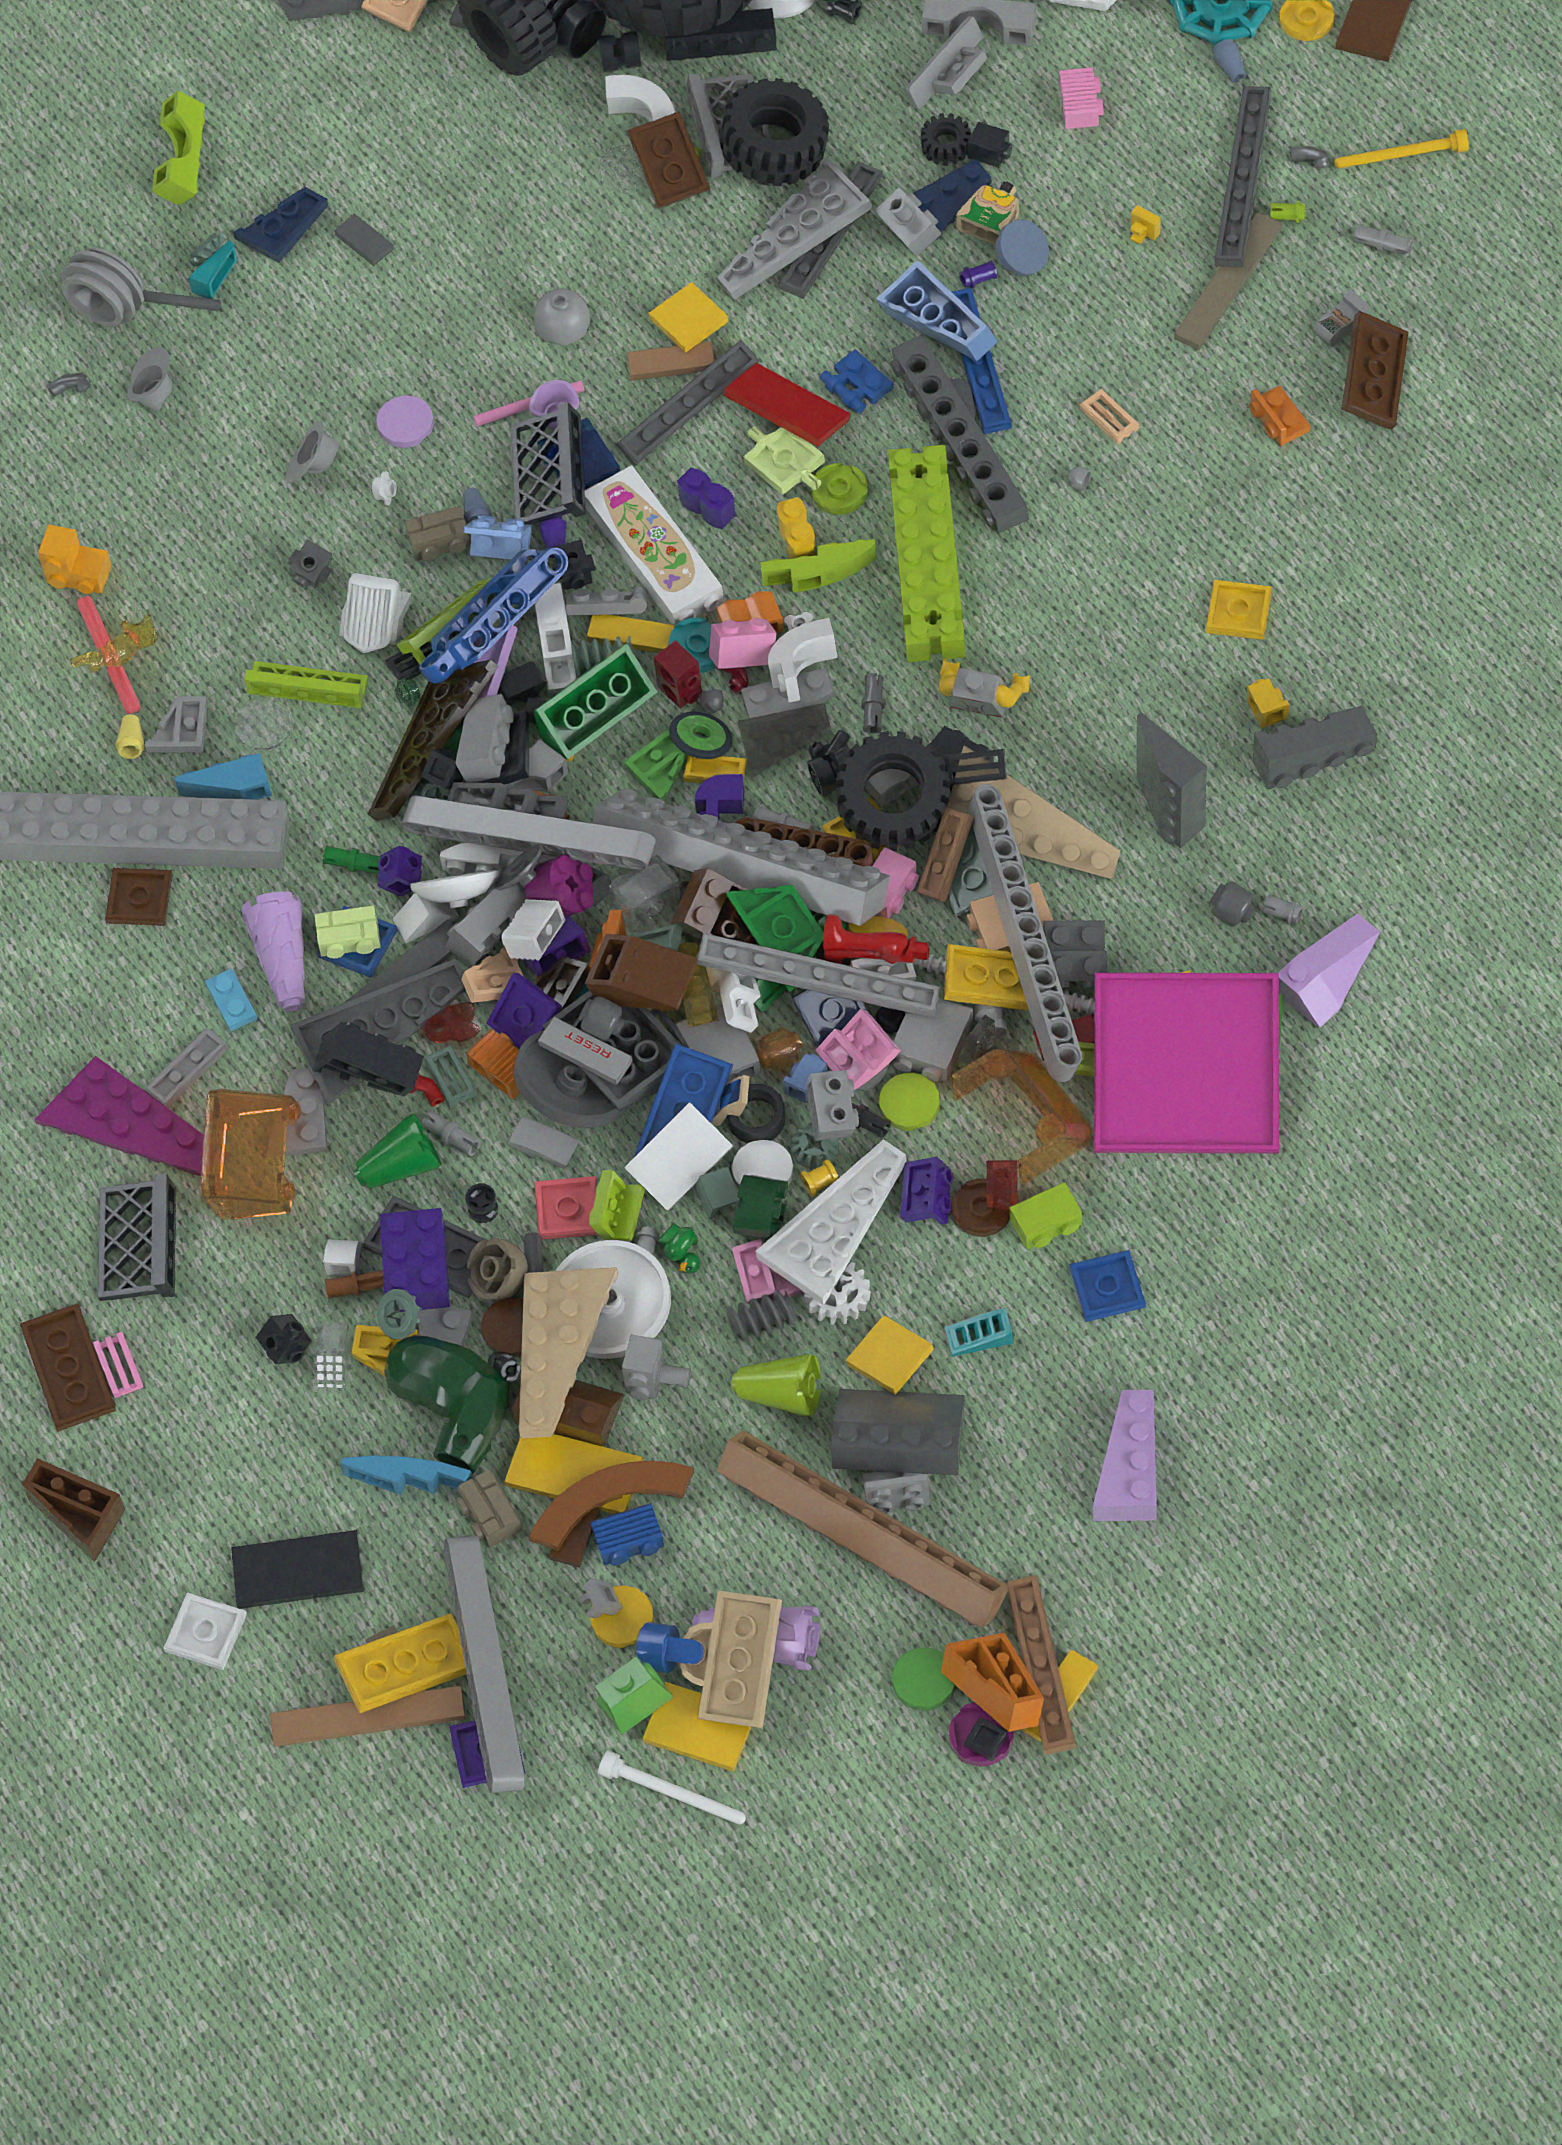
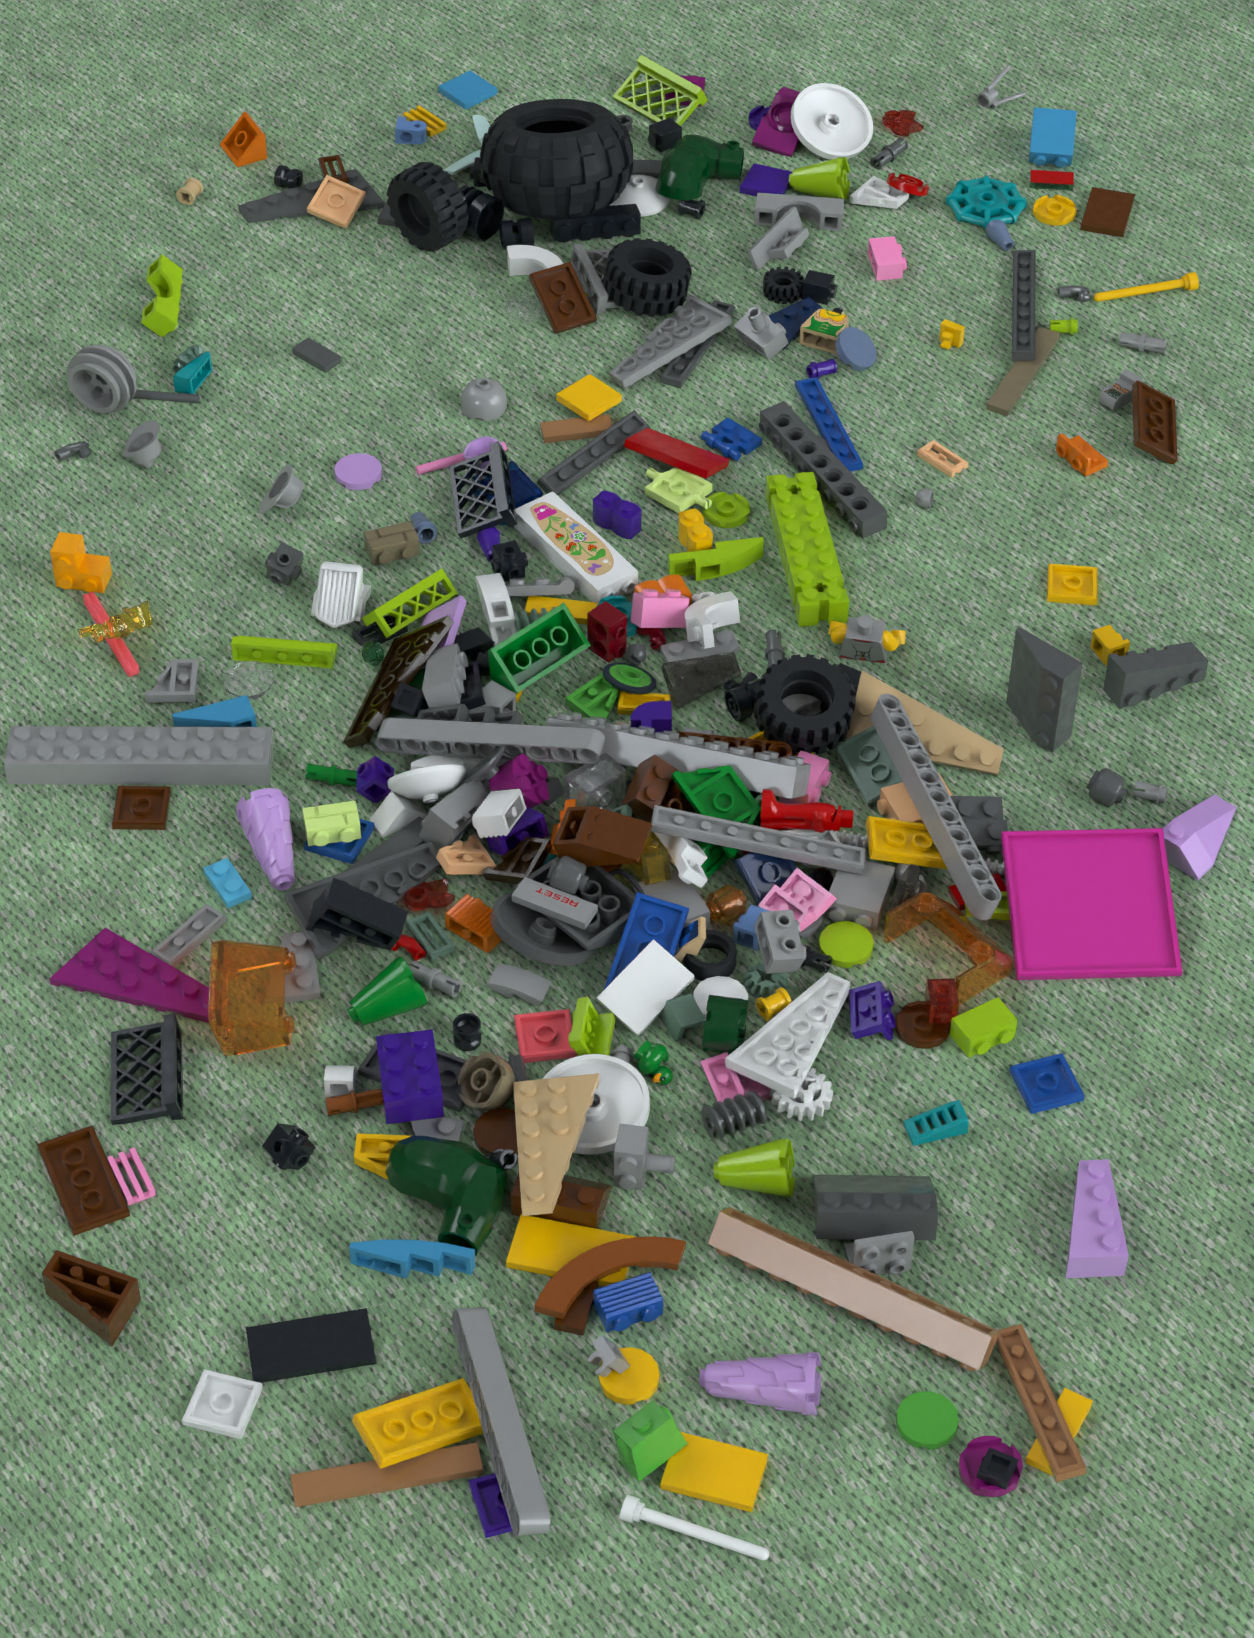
camera: 10 degrees left, 15 degrees down
(130, 738) = (131, 691): light yellow cone -> none
(283, 227) = (250, 347): dark blue wing -> none
(331, 1357) = (334, 1161): clear slope -> none
(384, 488) = (344, 514): white plate -> none
(392, 1303) = (390, 1110): sand green gear -> none
(488, 1508) = (493, 1284): dark tan brick -> none
(498, 538) = (444, 543): light blue bracket -> none
(512, 586) = (459, 577): blue piece -> none
(522, 1010) = (492, 877): dark purple tile -> none
(724, 1656) = (737, 1401): tan plate -> none
(889, 1354) = (856, 1144): yellow tile -> none
(934, 310) = (801, 389): medium blue wedge -> none
(945, 854) = (854, 754): medium nougat tile -> none
(994, 1679) = (1000, 1412): orange wedge -> none
(1001, 764) = (874, 686): black tile -> none

